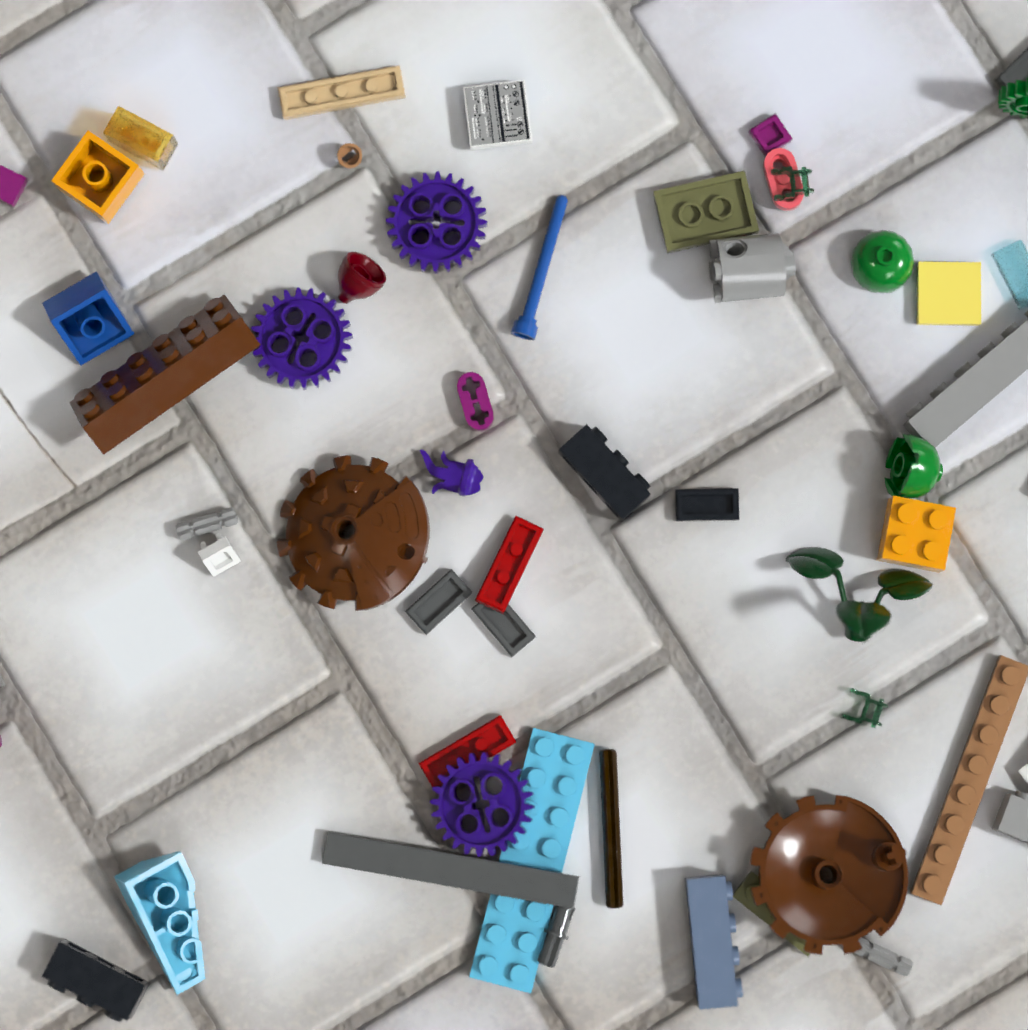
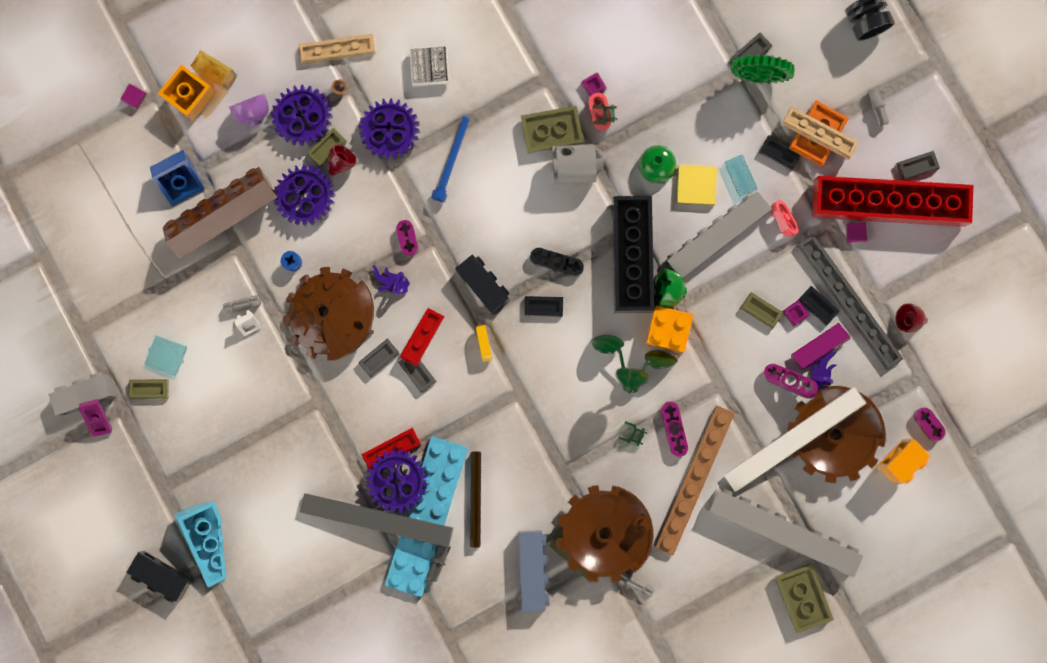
camera: 10 degrees right, 0 degrees up
(59, 671) = (149, 389): none -> olive tile
(84, 614) = (165, 355): none -> clear light blue piece
(205, 201) = (250, 110): none -> medium lavender cylinder
(287, 455) = (295, 262): none -> blue wheel
(314, 192) = (286, 123): none -> dark purple gear
(325, 263) = (320, 151): none -> olive tile
(612, 570) = (484, 343): none -> yellow beam
(704, 417) = (572, 261): none -> black beam
(850, 413) = (633, 254): none -> black brick
(932, 722) = (683, 441): none -> magenta beam

